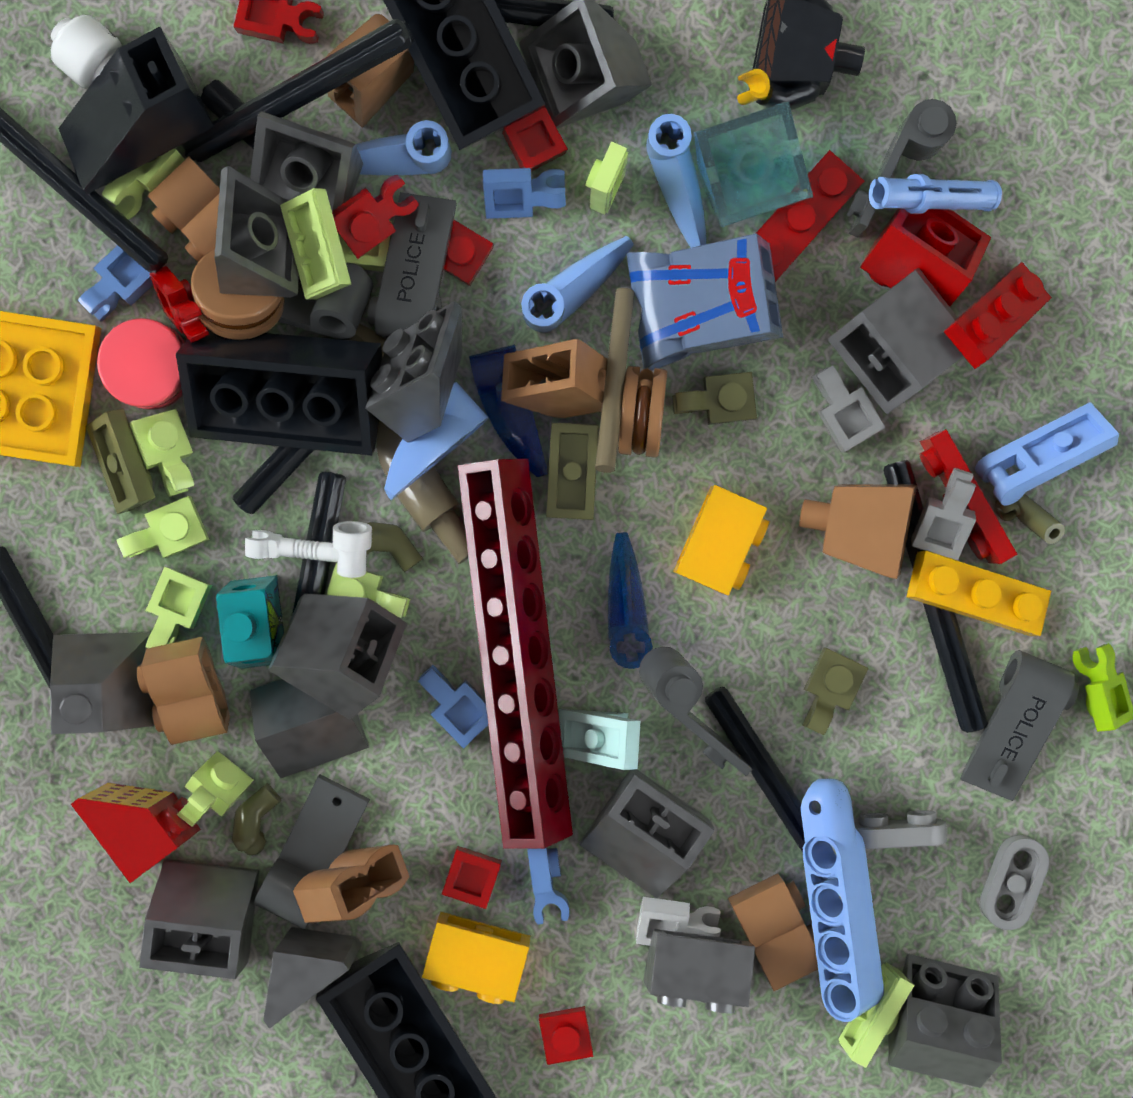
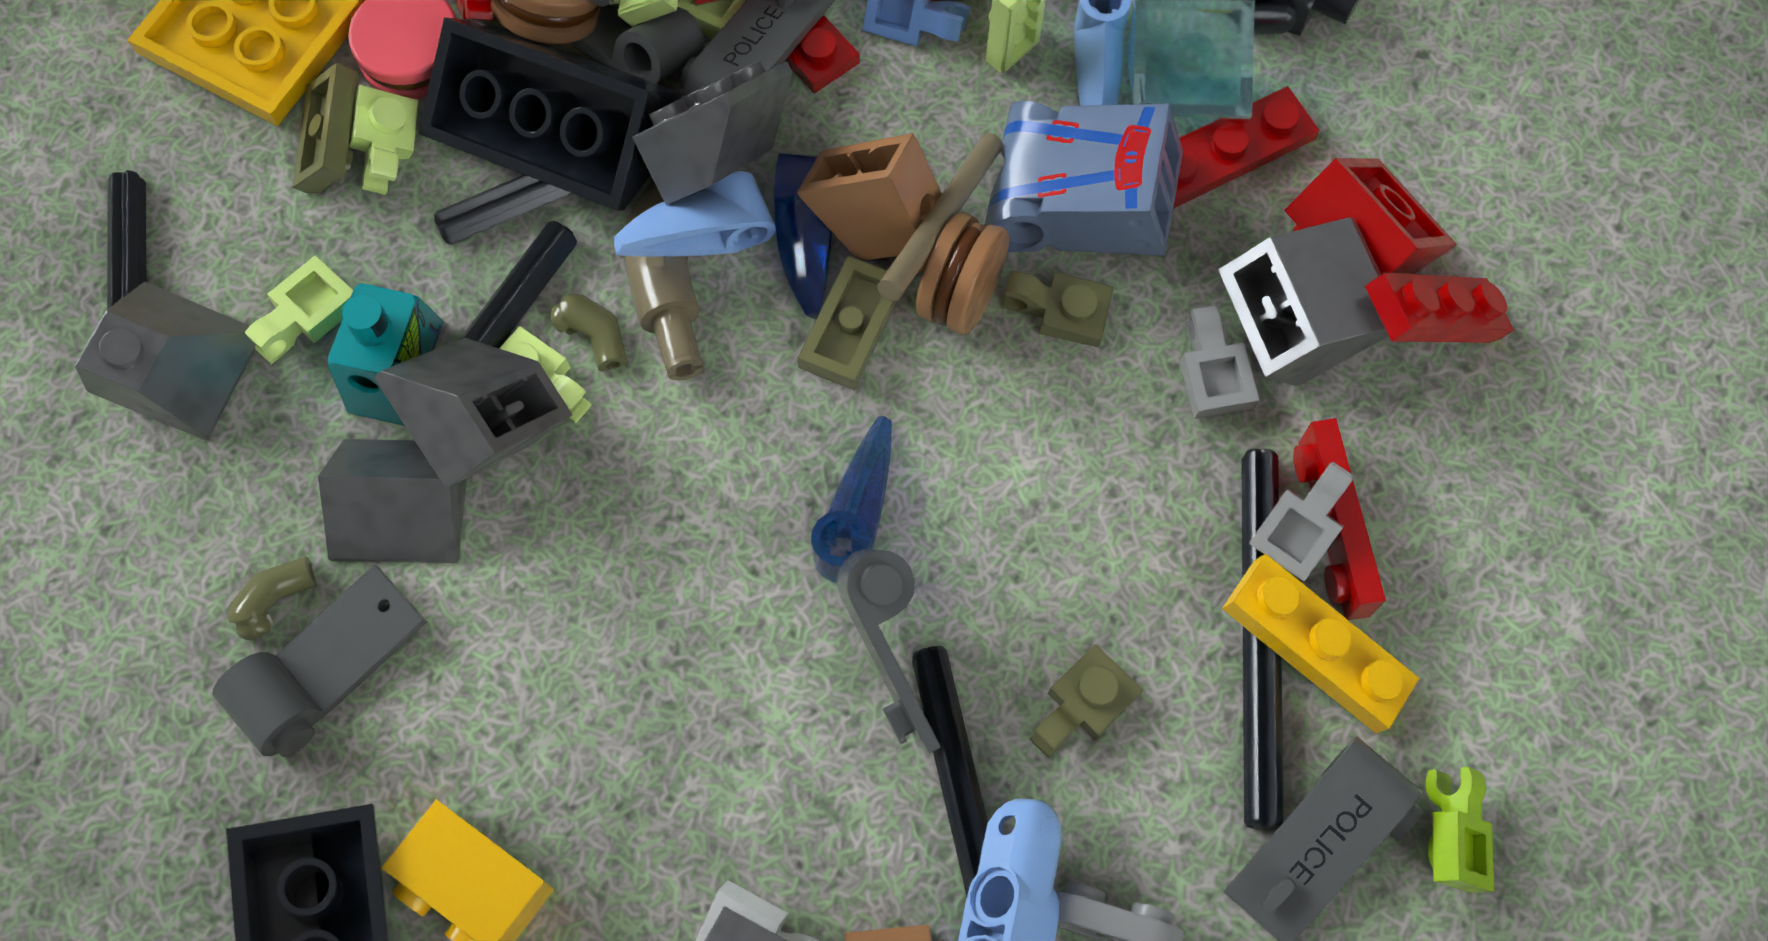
camera: 15 degrees right, 20 degrees down
(135, 825) = (120, 535): red slope -> none
(171, 529) = (344, 227): yellowish green plate -> none
(184, 691) = (264, 398): medium nougat brick -> none
(200, 919) = (133, 686): flat silver slope -> none
(214, 786) = (242, 524): yellowish green plate -> none
(303, 967) = (221, 790): flat silver slope -> none
(348, 548) = (538, 306): white brick -> none
(351, 884) = (348, 700): medium nougat brick -> none
(460, 710) = (592, 550): medium blue plate -> none
(471, 877) = (511, 771): red plate -> none
(515, 653) = (687, 508): dark red brick -> none
(543, 867) = (610, 789): medium blue plate -> none
(574, 285) = (934, 126): light blue piece -> none
(600, 738) = (755, 646): light aqua slope -> none
(647, 833) = (766, 793): flat silver slope -> none
(721, 540) = (1005, 461): yellow brick -> none
(864, 524) = (1198, 499): medium nougat torso -> none
(917, 138) = (1395, 103): dark grey door -> none
(921, 193) = (1384, 148): light blue pin -> none
(1033, 517) = (1415, 571): olive arm -> none
(1047, 453) = (1458, 502): light blue plate -> none

